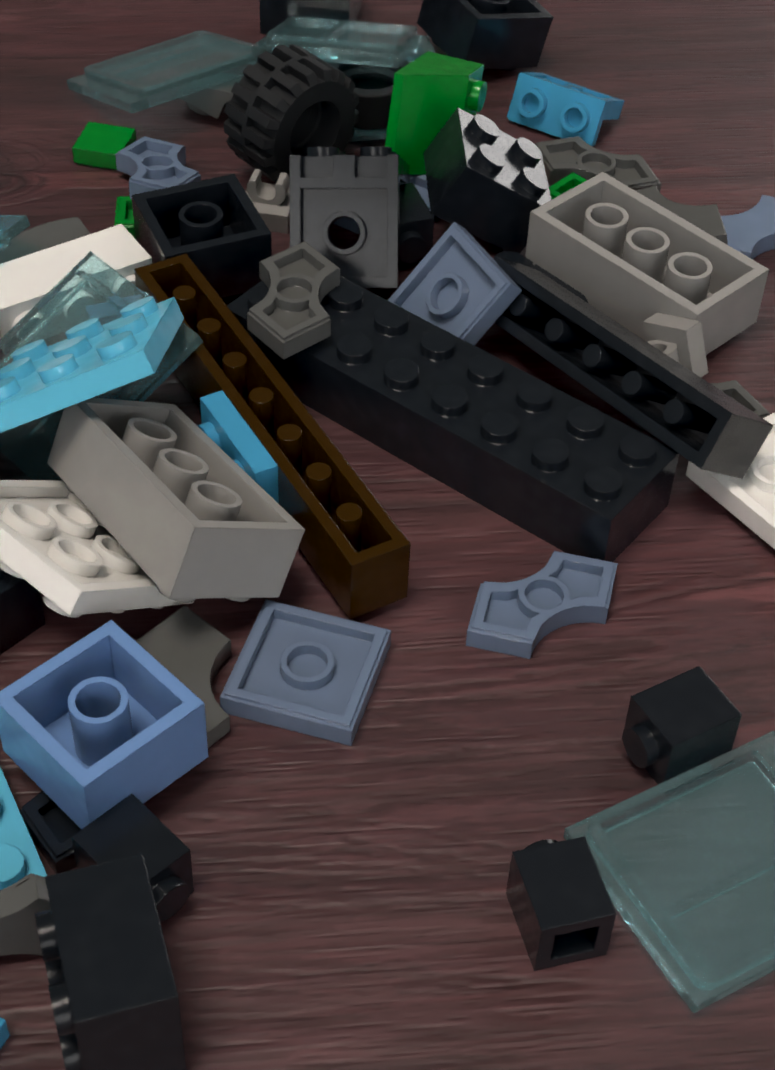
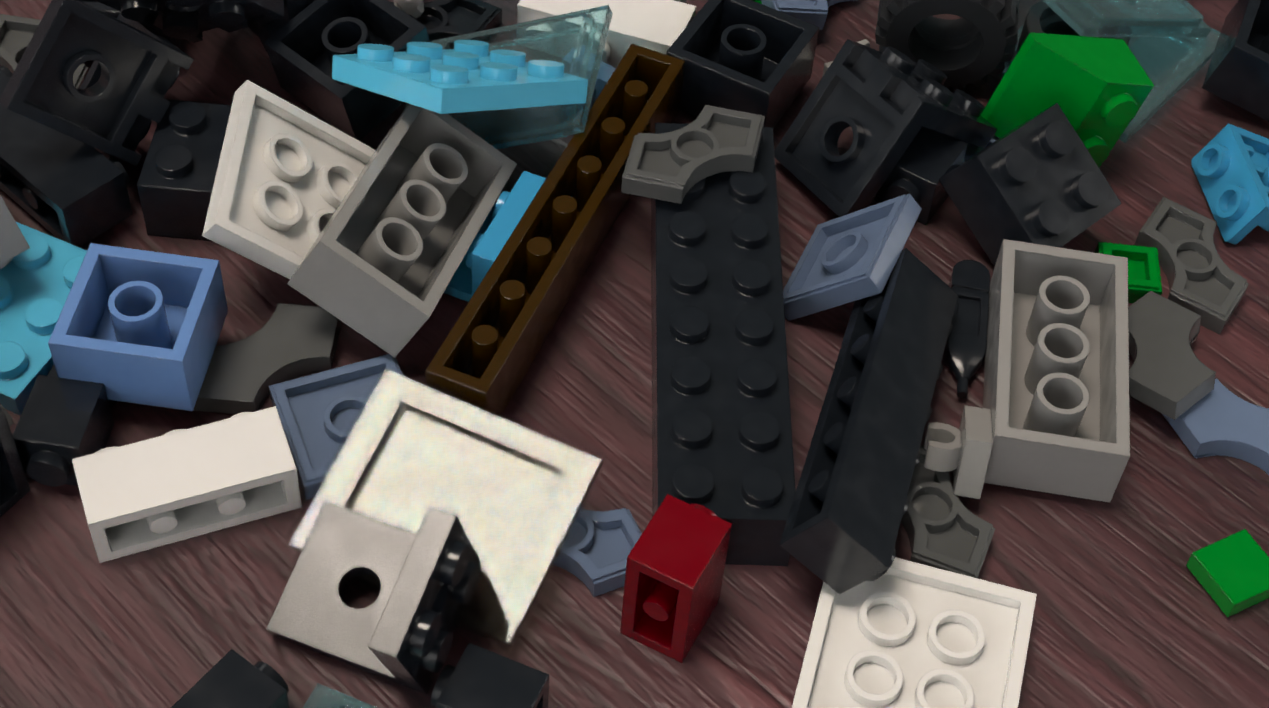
camera: 50 degrees right, 5 degrees up
(276, 807) = (187, 483): none -> white brick
(468, 647) = (499, 478): none -> clear smoke piece
(569, 706) = (418, 602): none -> bracket
(670, 546) = (674, 577): none -> dark red brick

